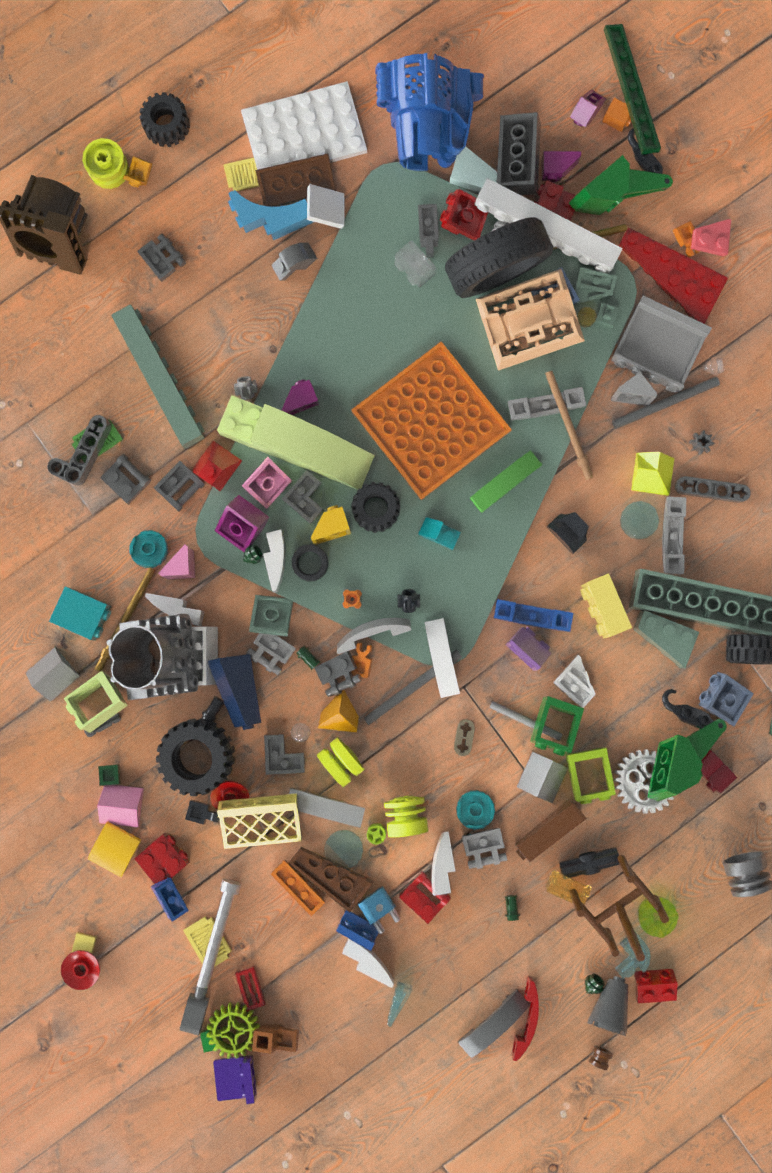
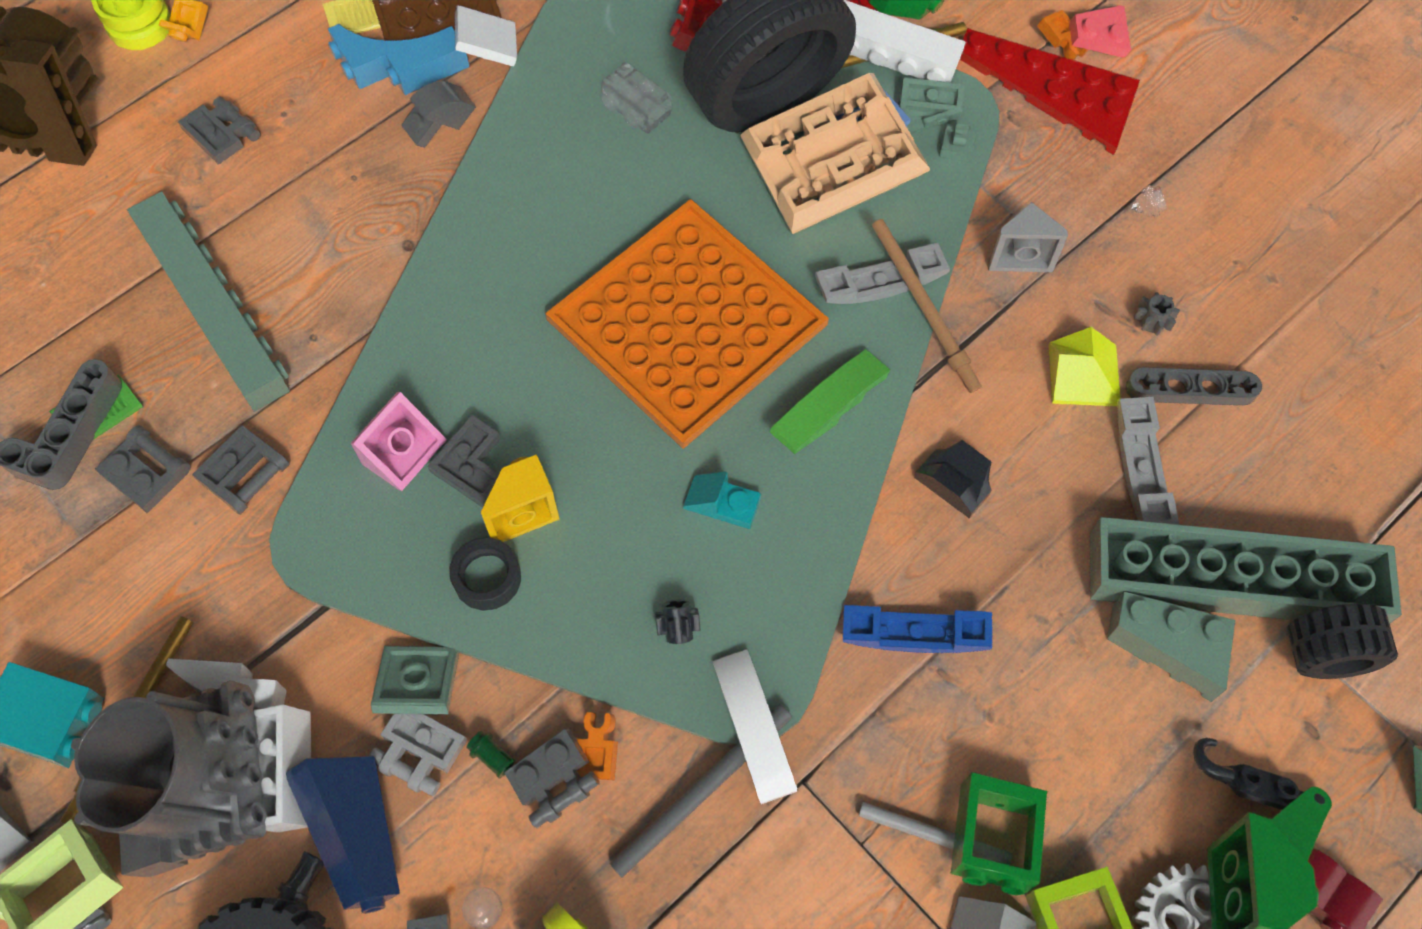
camera: 10 degrees left, 20 degrees down
(148, 549) = (180, 584): teal tile -> none
(181, 565) = (235, 601): bright pink slope -> none
(216, 465) = (310, 429): red slope -> none
(241, 523) = (353, 516): magenta slope -> none
(245, 387) = (360, 300): light grey gear -> none
(252, 554) = (376, 570): dark green plate -> none
(275, 559) = (419, 572): white slope -> none
(295, 442) = (448, 369): yellowish green slope -> none
(300, 398) = (454, 306): magenta slope -> none
(339, 715) = (560, 862): light orange slope -> none
(355, 603) = (562, 624): orange plate -> none
(372, 491) = (594, 439): black tyre -> none
(396, 625) = (571, 711): light grey slope -> none
(428, 227) = (652, 49): dark grey hinge -> none
(469, 737) = (807, 882): dark tan beam -> none
(528, 648) = (917, 689): medium lavender slope -> none
(575, 683) = (1020, 747): white wing -> none
(586, 317) = (929, 147): clear yellow tile -> none
(605, 606) = (1050, 593): light yellow brick -> none
(639, 520) = (1077, 449): clear light blue tile -> none
(660, 344) = (1060, 170): light grey panel -> none
(666, 402) = (1081, 263): dark grey piece -> none
(725, 698) = (1314, 745): sand blue plate -> none

